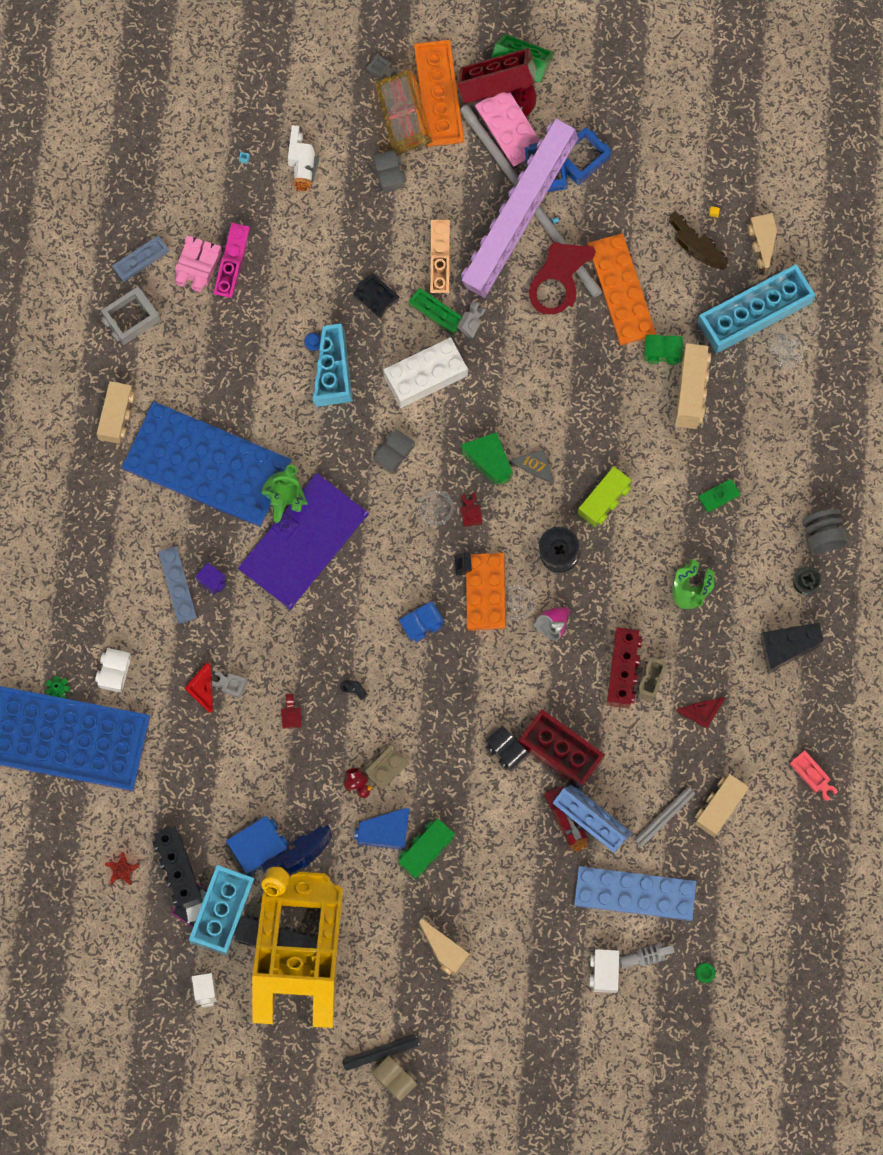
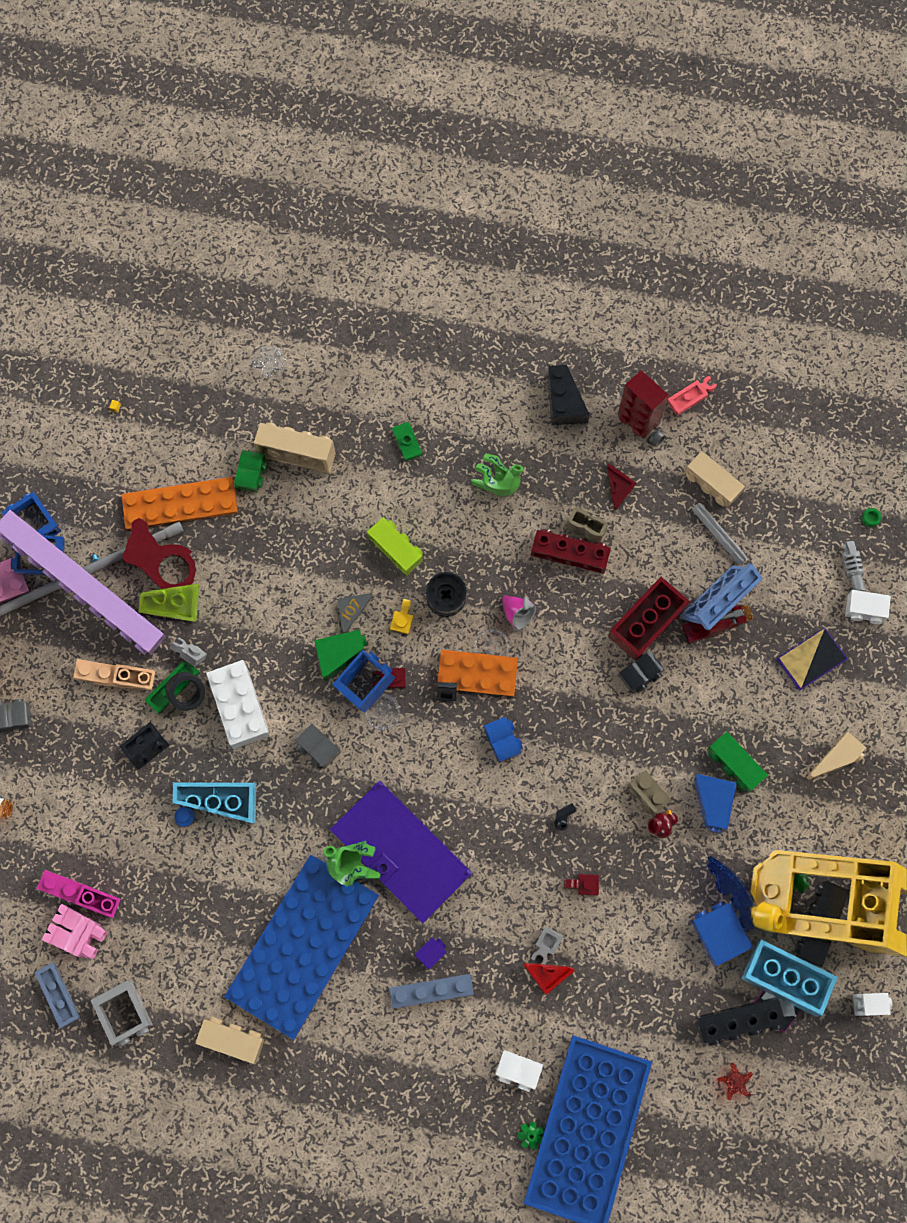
camera: 80 degrees left, 0 degrees up
(313, 916) = (800, 883): none -> green plant
(419, 328) = (197, 698): none -> black tyre
(459, 465) = (353, 669): none -> blue window
(518, 296) = (171, 602): none -> lime wing
(529, 514) = (402, 620): none -> yellow plate
(543, 919) = (812, 659): none -> tile
(635, 893) = (792, 571): medium blue plate -> none
(700, 248) = (152, 422): dark brown slope -> none
(756, 308) = (224, 379): medium azure brick -> none
(760, 744) = (656, 437): none -> dark grey plate
(764, 232) = (149, 363): tan slope -> none
(784, 715) = (642, 404): none -> dark red brick
(807, 580) = (502, 373): pearl dark grey wheel -> none
(825, 531) = (458, 348): dark grey wheel -> none

